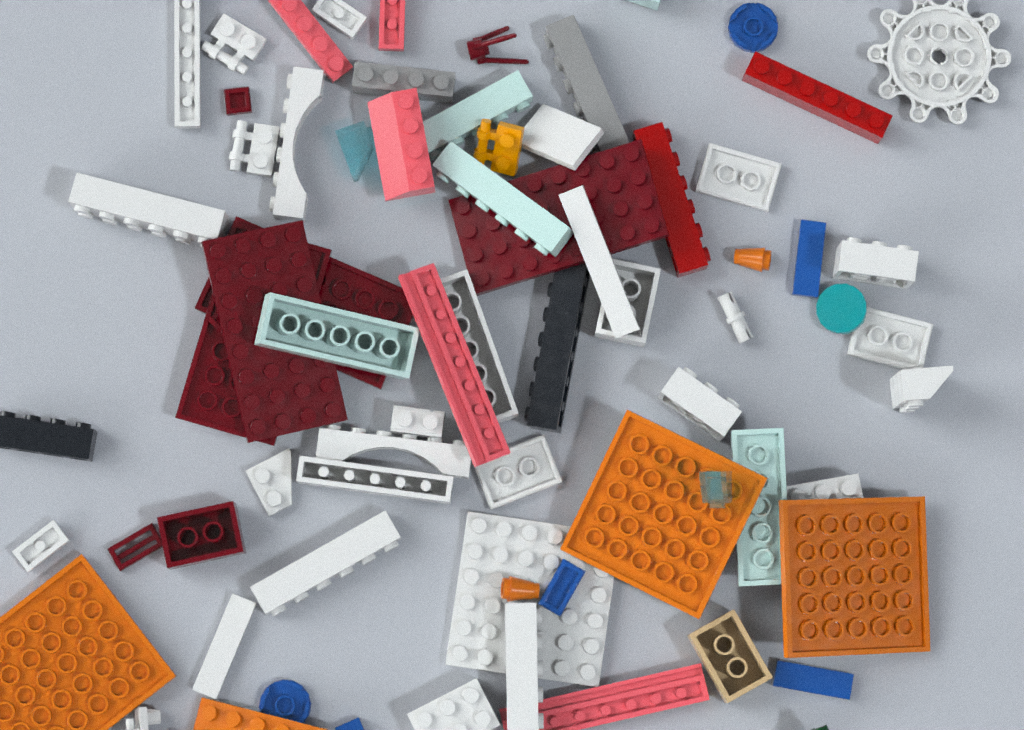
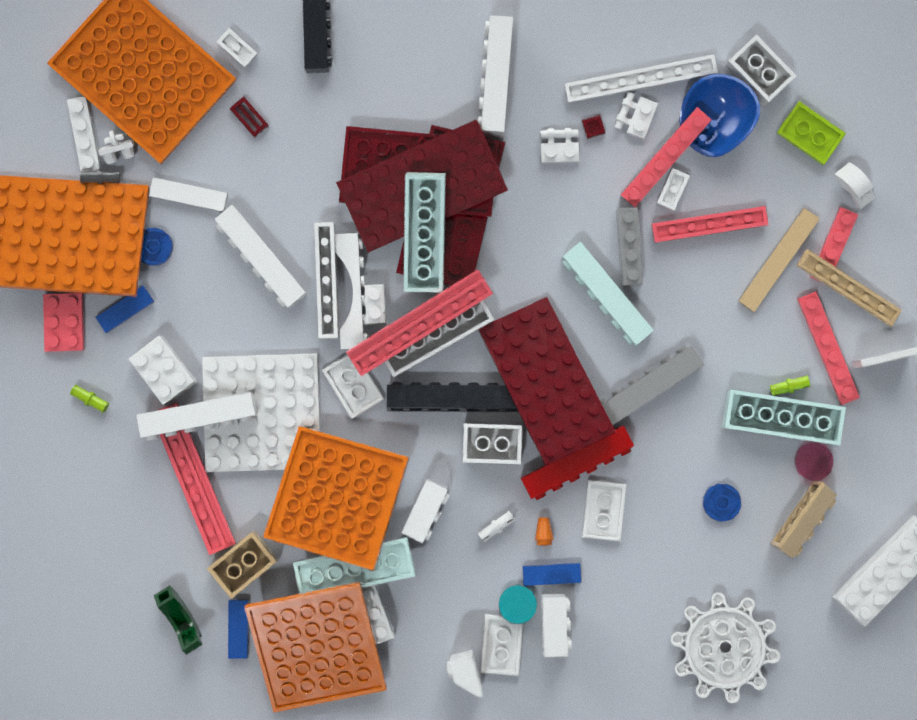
camera: 85 degrees right, 5 degrees up
(201, 535) = (263, 162): dark red brick -> none
(273, 482) = (314, 207): white wing -> none
(305, 93) = (608, 175): white arch -> none
(356, 146) = (573, 221): clear light blue slope -> none
(401, 145) = (579, 253): coral slope -> none
(479, 48) = (667, 299): dark red plant -> none
(503, 199) = (551, 336): light aqua brick -> none
(507, 146) = (593, 332): light orange plate -> none
(518, 589) = (264, 400): orange cone -> none
(560, 137) = (608, 370): white tile -> none
(561, 587) = (271, 432): blue tile -> none
(599, 261) = (516, 416): white tile -> none
(716, 488) = (358, 533): clear light blue slope -> none
(817, 97) = (675, 560): red brick -> none

